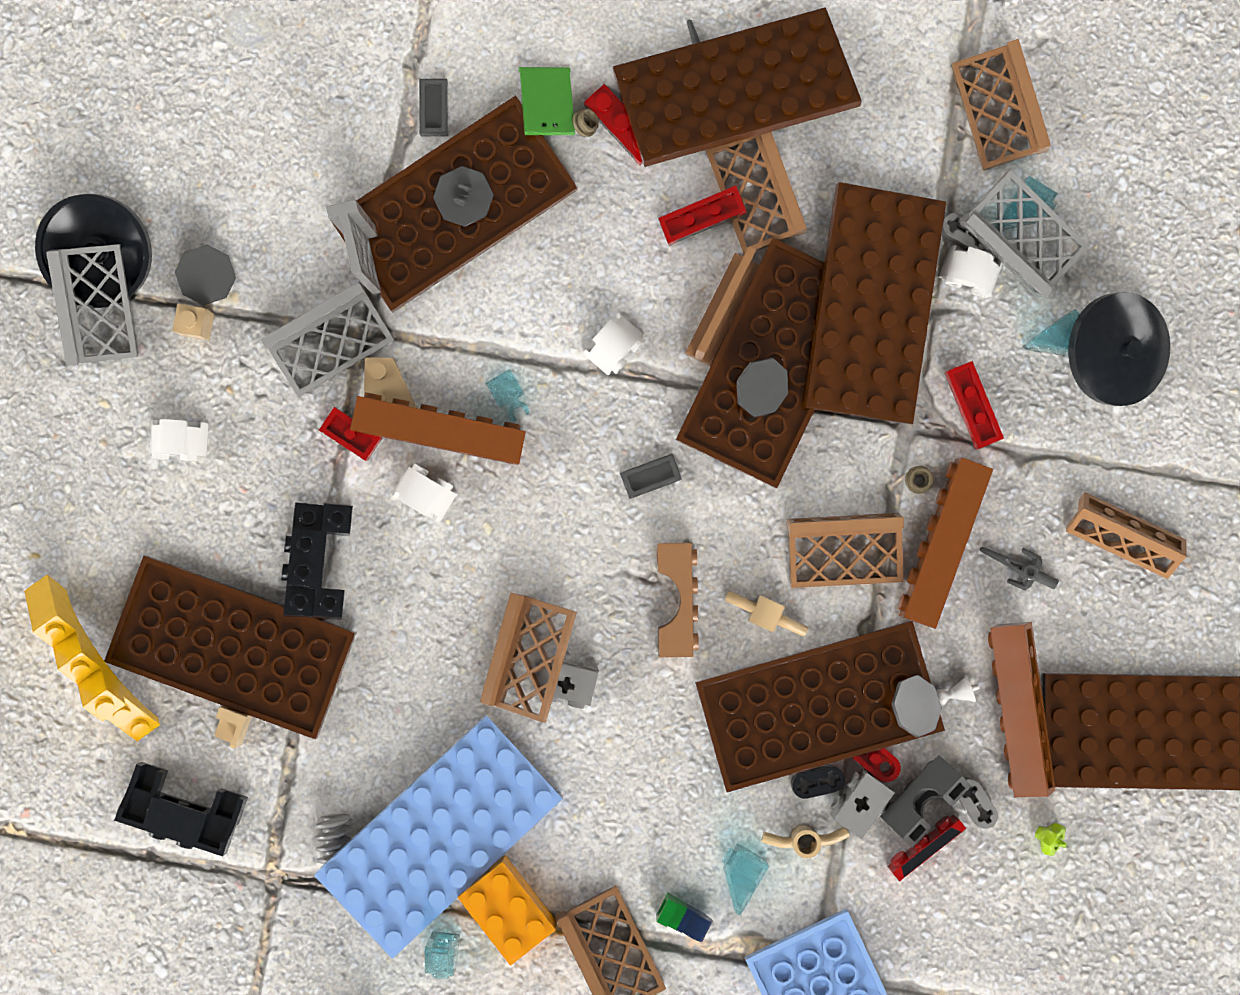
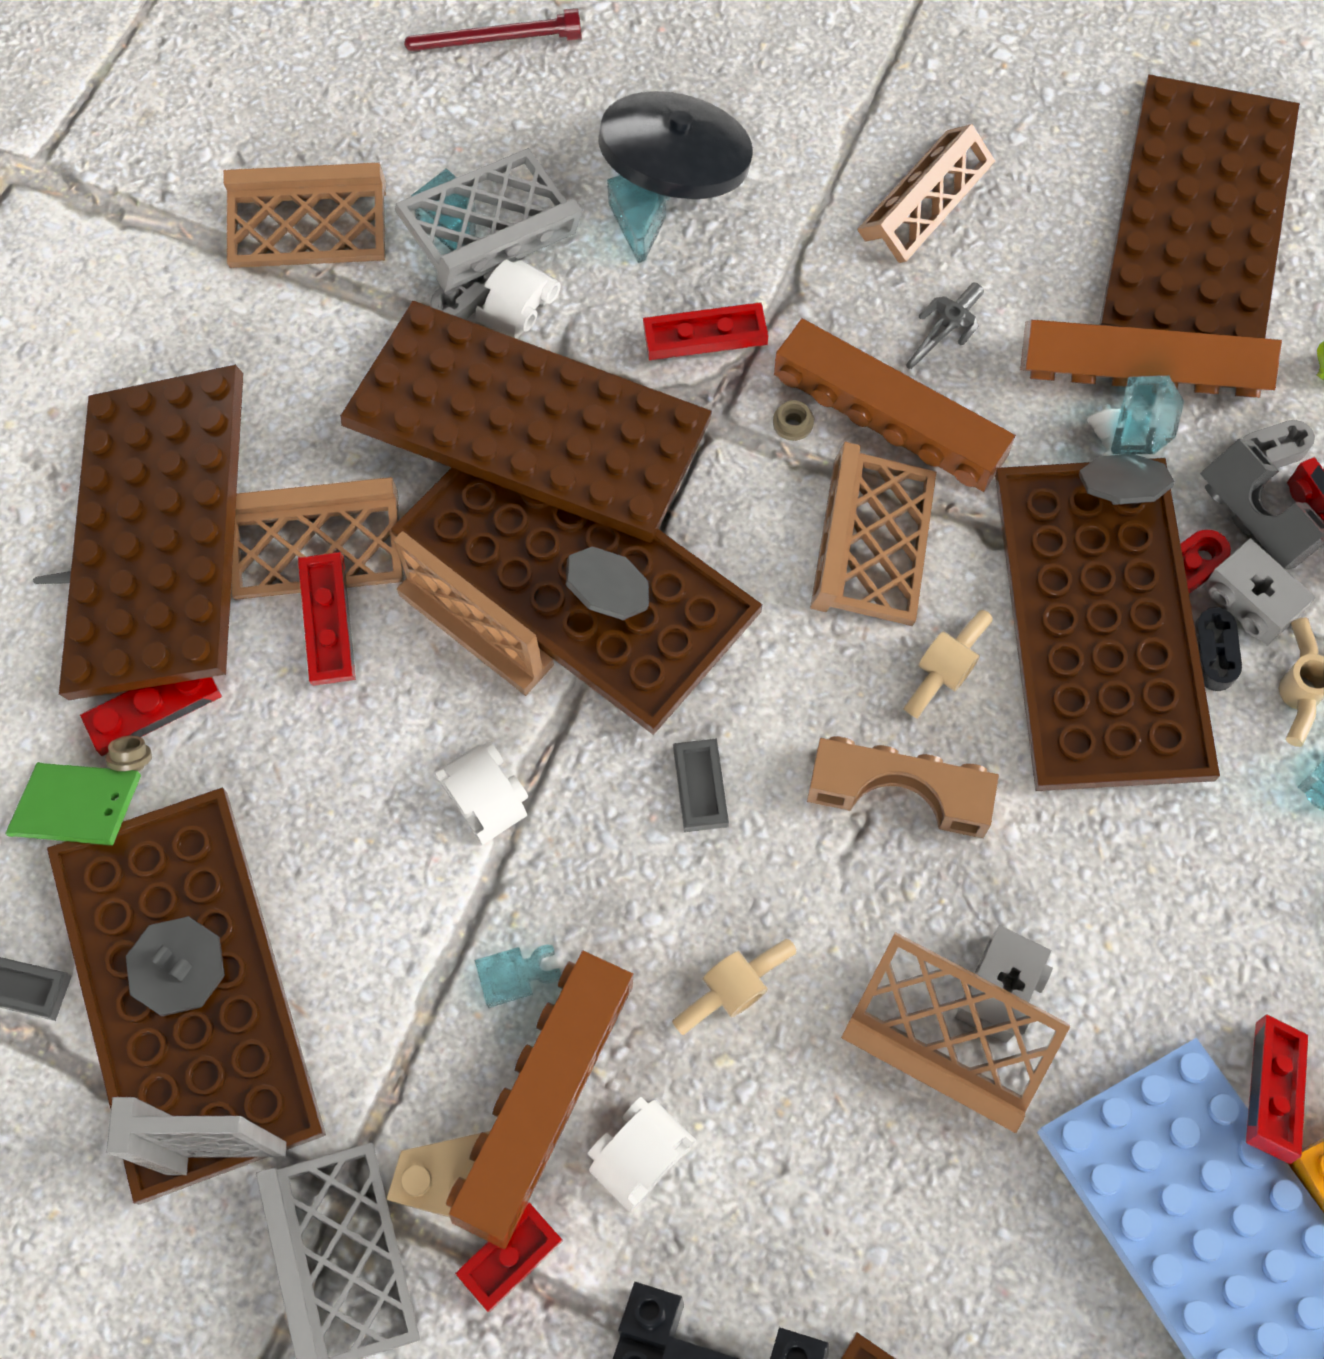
camera: 75 degrees left, 20 degrees down
(530, 524) = (734, 985): none -> tan piece
(540, 847) = (1277, 1089): none -> red plate
(969, 714) = (1147, 415): none -> clear light blue slope
(1214, 242) = (565, 25): none -> dark red piece

